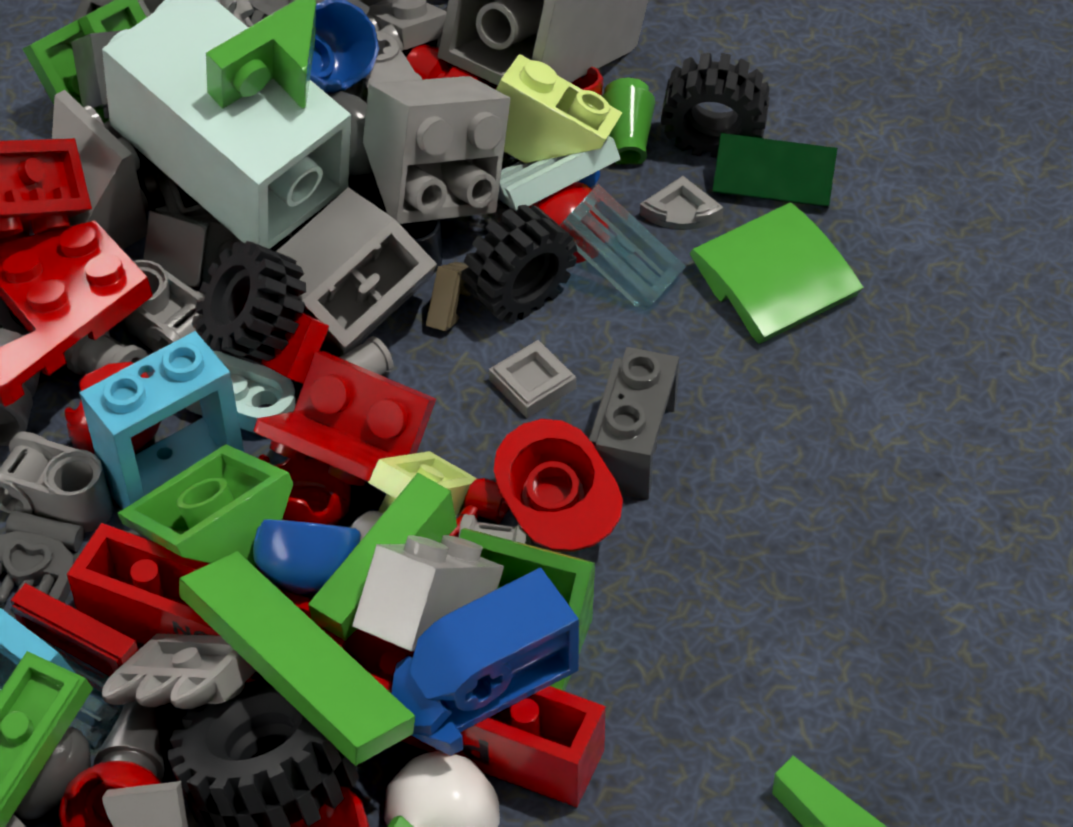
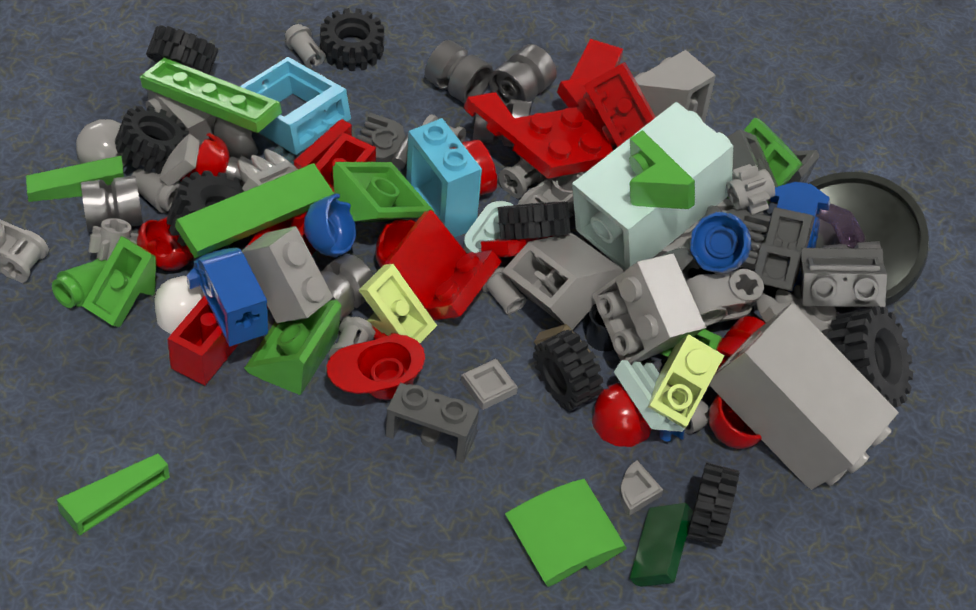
camera: 90 degrees right, 0 degrees up
(419, 510) = (338, 270): bright green piece -> none
(614, 254) = (597, 444): clear light blue tile -> none
(633, 127) = (723, 455): bright green cone -> none

